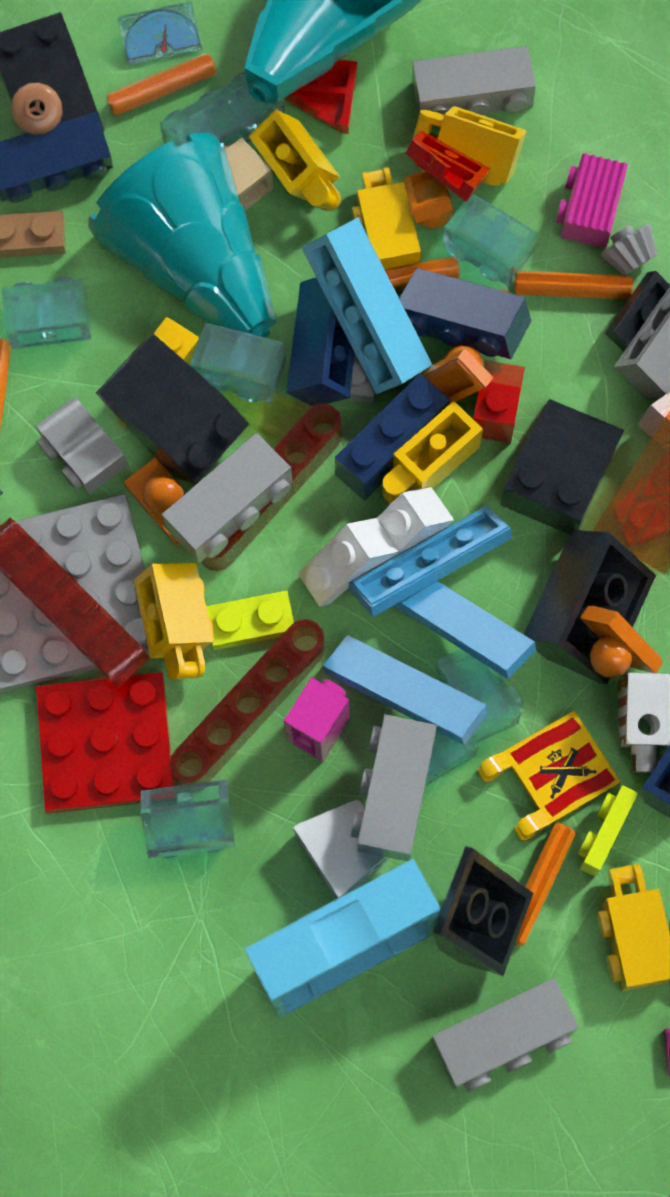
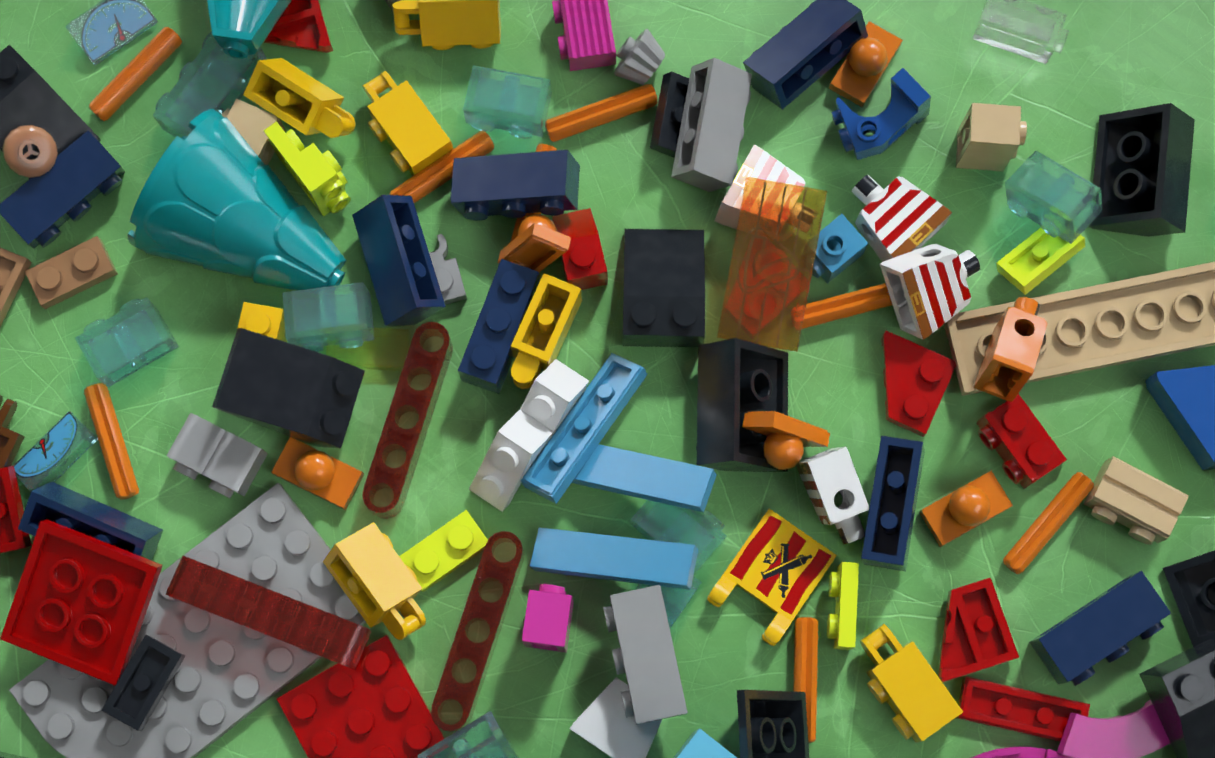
camera: 25 degrees left, 5 degrees up
(228, 498) = (379, 452): light grey brick -> none
(281, 225) = (314, 172): none -> neon yellow plate
(367, 306) = (425, 216): medium azure brick -> none
(428, 200) = (435, 83): orange tile -> none
(447, 165) = (441, 49): red wing -> none

